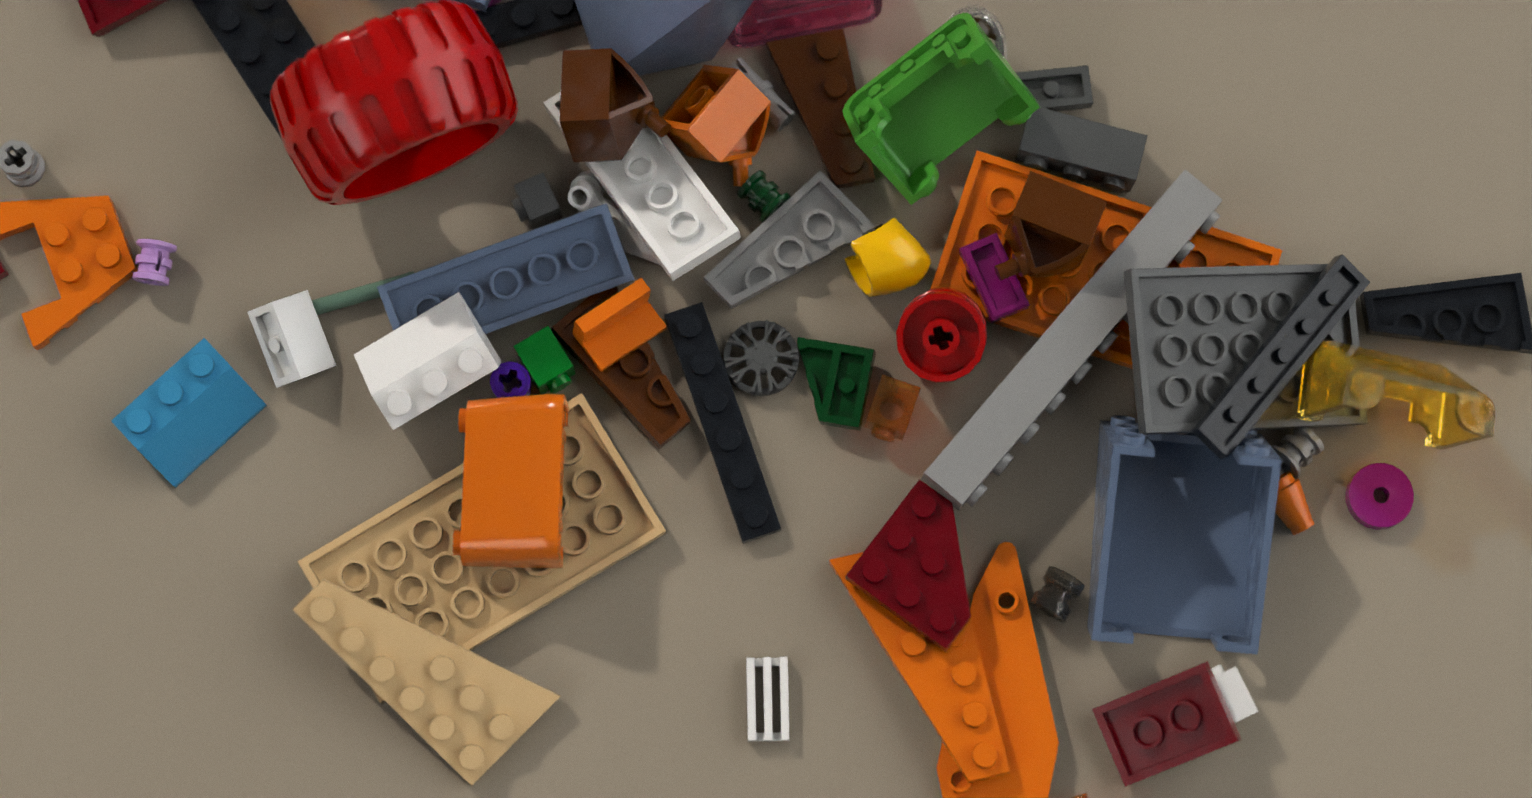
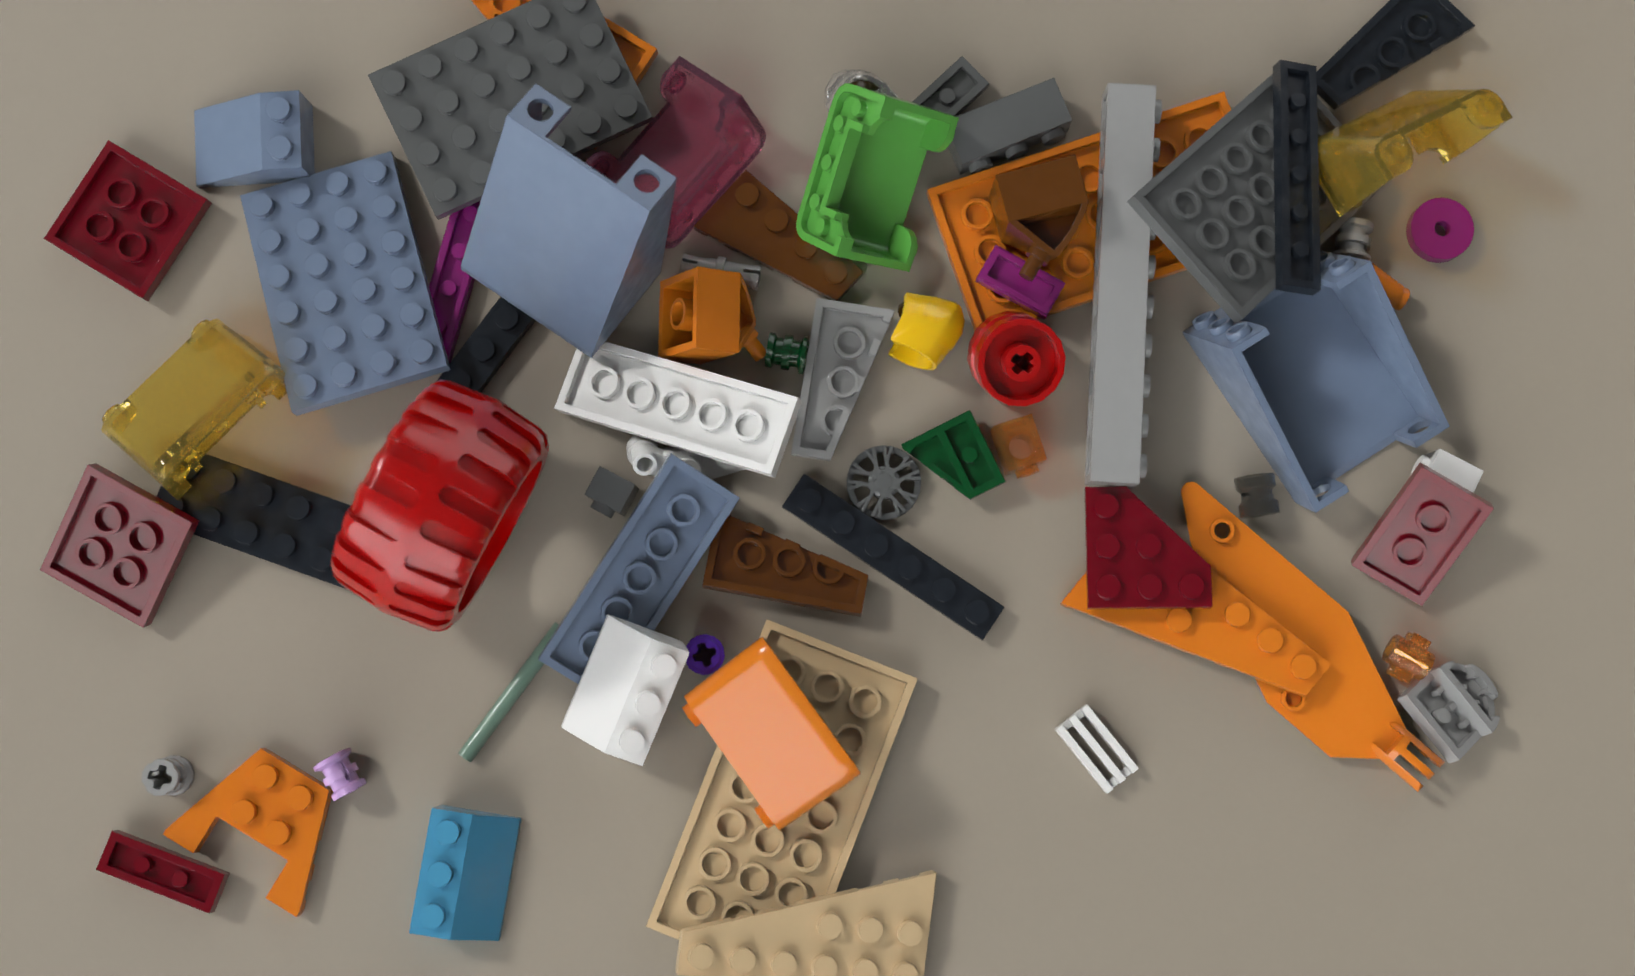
camera: 30 degrees left, 5 degrees up
(291, 338) = (501, 751): white panel -> none
(545, 361) = (718, 615): green brick -> none
(604, 105) = (611, 376): reddish brown piece -> none
(618, 325) = (756, 544): orange panel -> none

